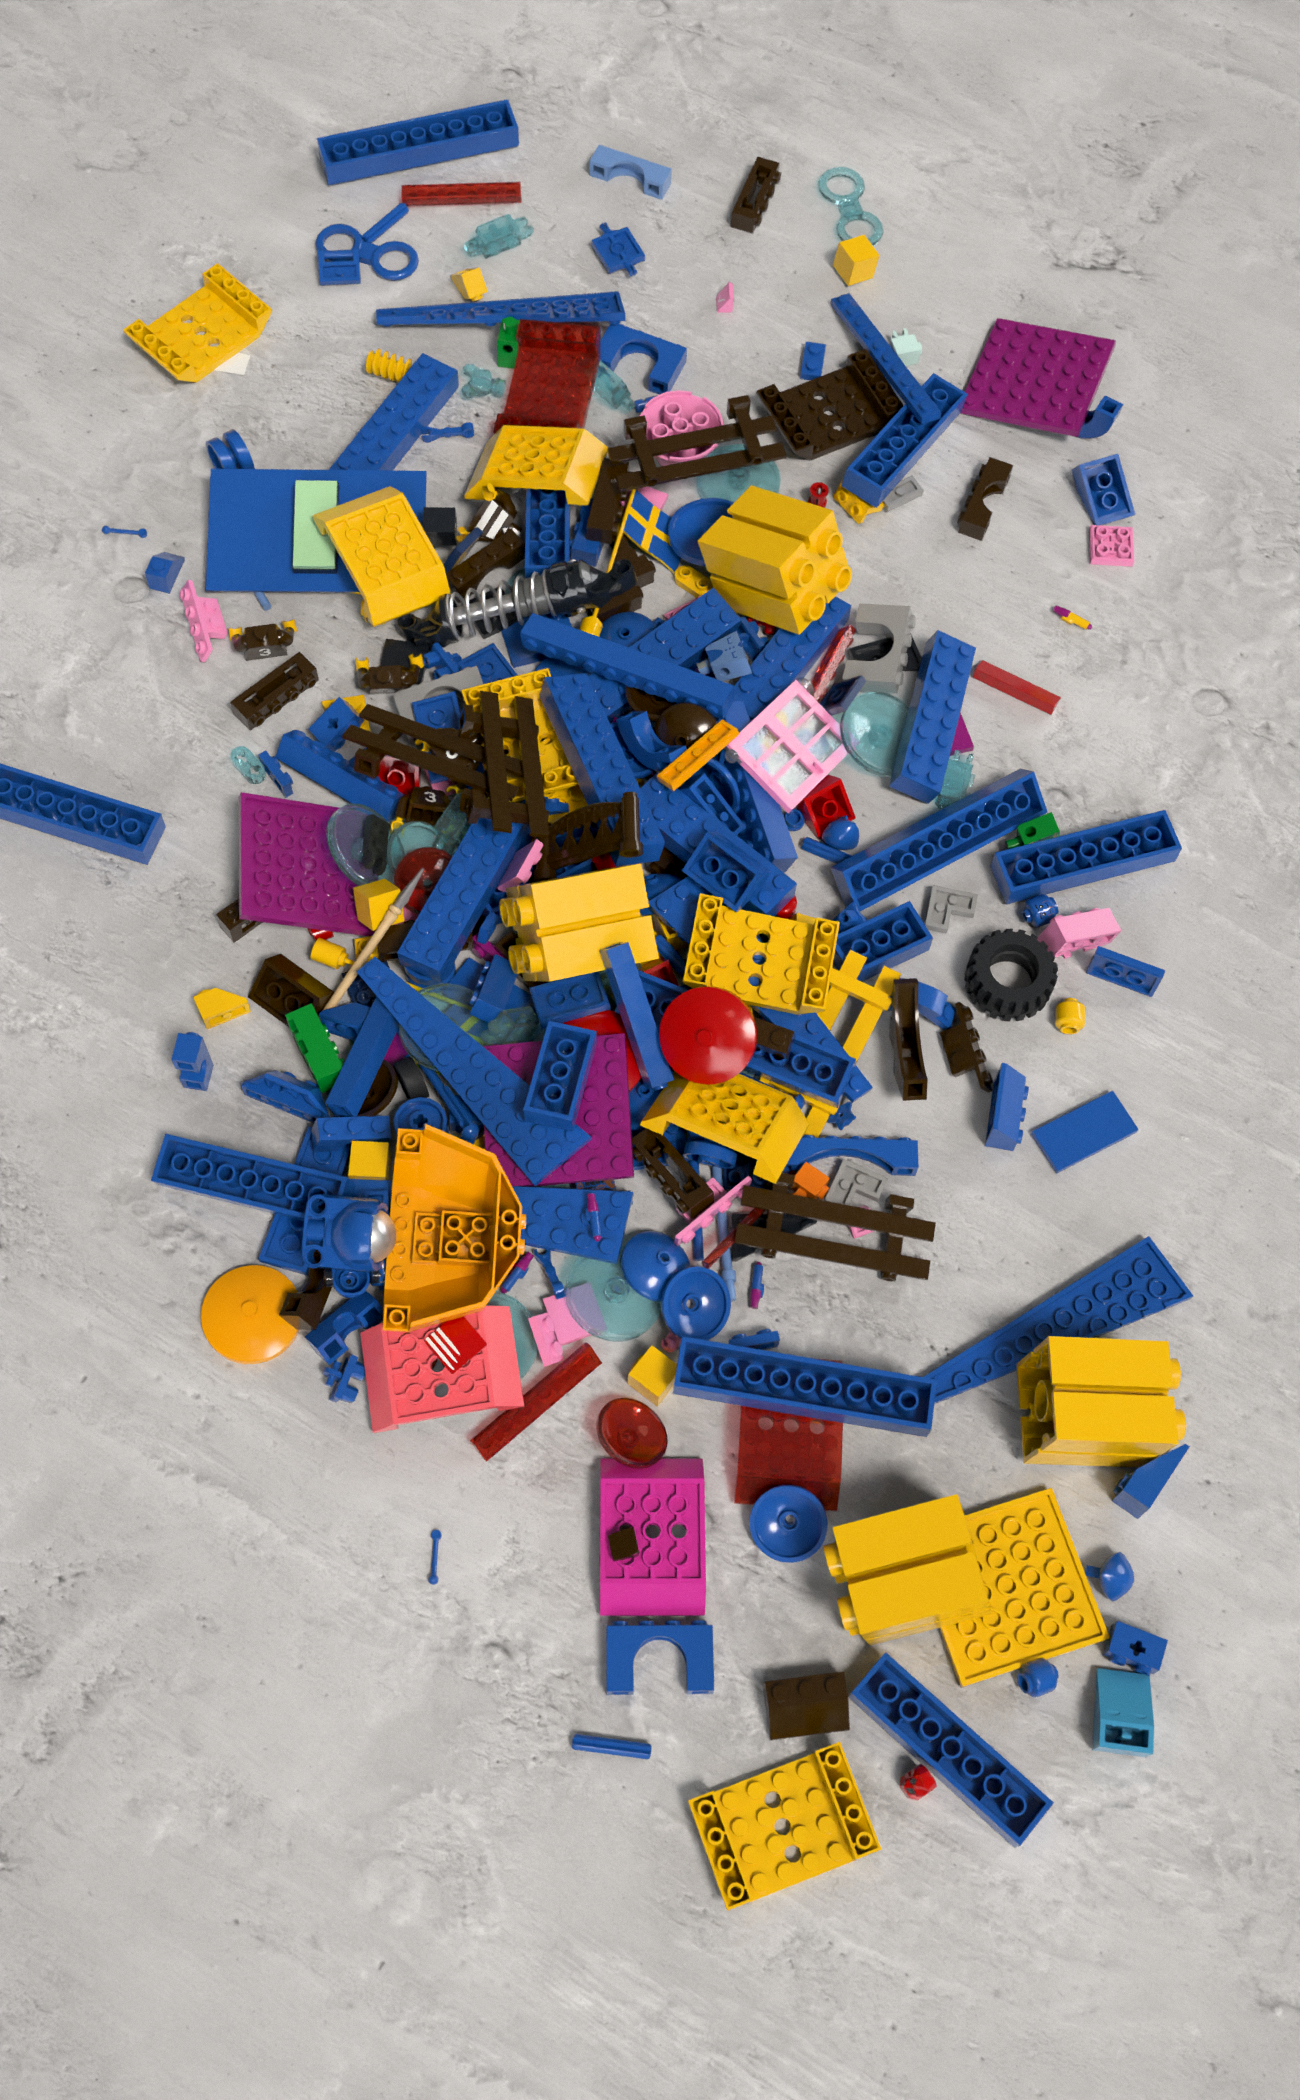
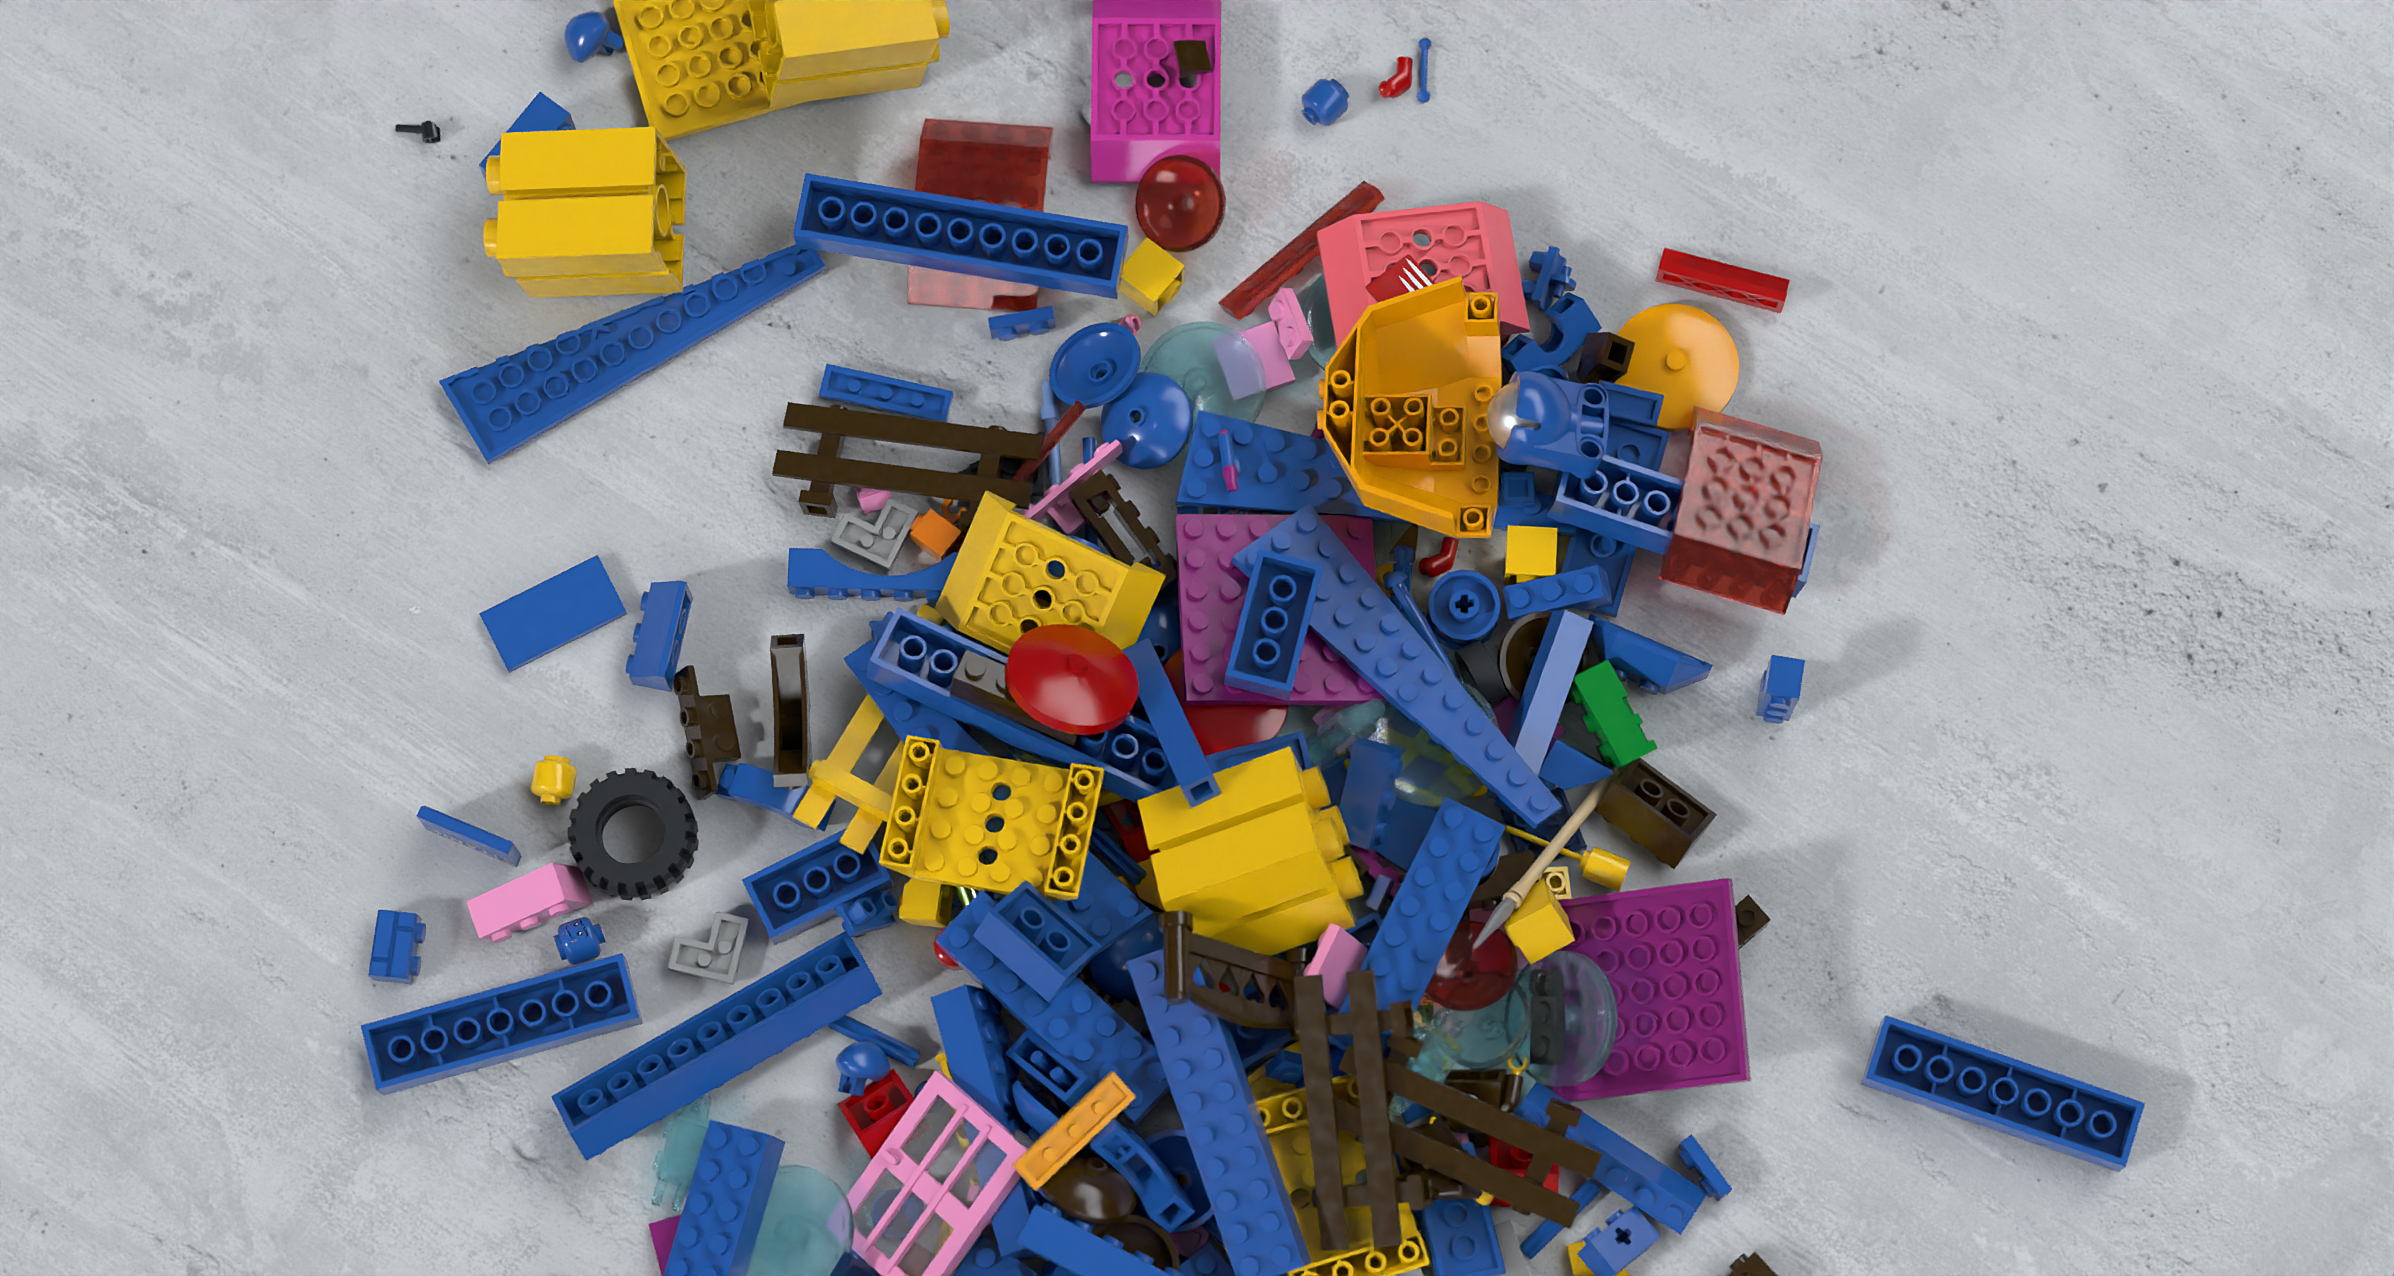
camera: 175 degrees left, 10 degrees up
(204, 1193) = (1742, 511): none -> clear red slope
(207, 1380) = (1722, 280): none -> red fence
(220, 1006) = (1755, 792): yellow slope -> none
(251, 762) = (1755, 1184): clear light blue beam -> none
(288, 1275) = (1633, 403): none -> blue tile
(452, 1546) = (1400, 81): none -> red arm
(516, 1523) = (1324, 102): none -> blue head
(545, 1261) = (1276, 390): blue piece -> none
(757, 1287) = (1013, 401): piece -> none
(783, 1539) = (987, 94): blue dish -> none
(854, 1289) = (885, 394): none -> blue plate
(1034, 831) = (562, 1063): green torso -> none
(1164, 908) = (396, 947): none -> blue brick
(1229, 1499) = (428, 129): none -> black hand

